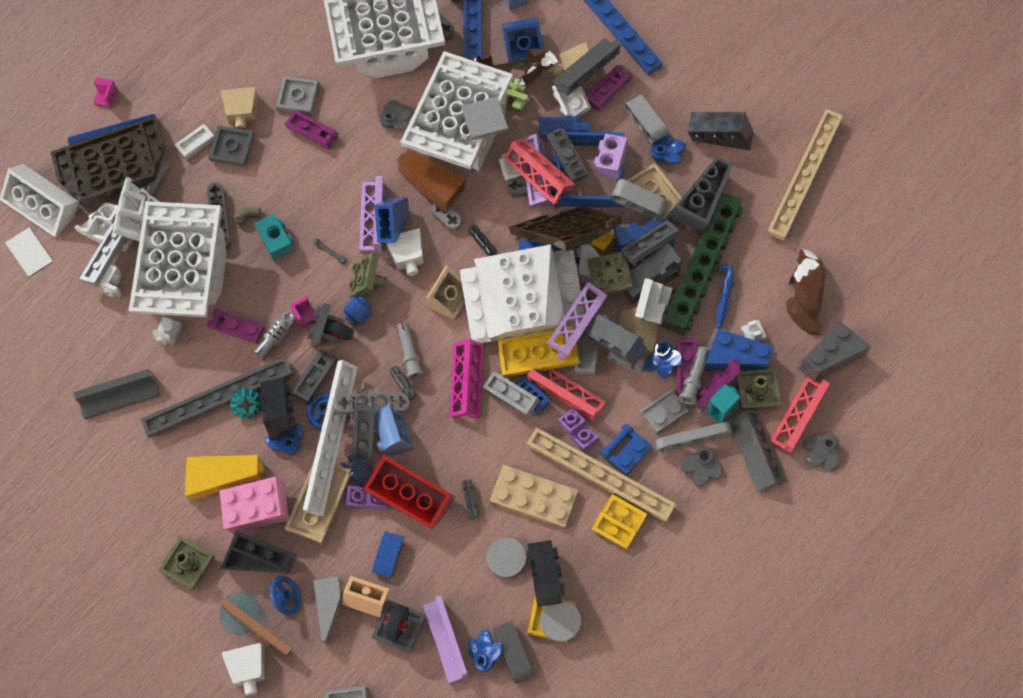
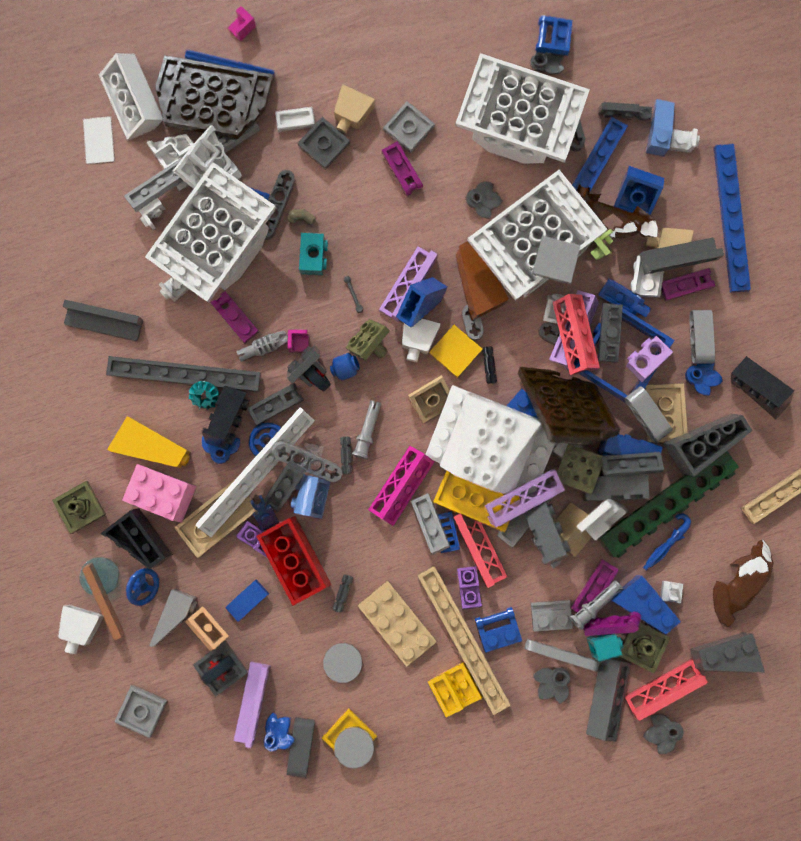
camera: 25 degrees right, 15 degrees up
(446, 246) = (455, 351): none -> yellow tile
(545, 573) = (365, 700): black wedge -> none
(663, 362) = (576, 572): blue plate -> none

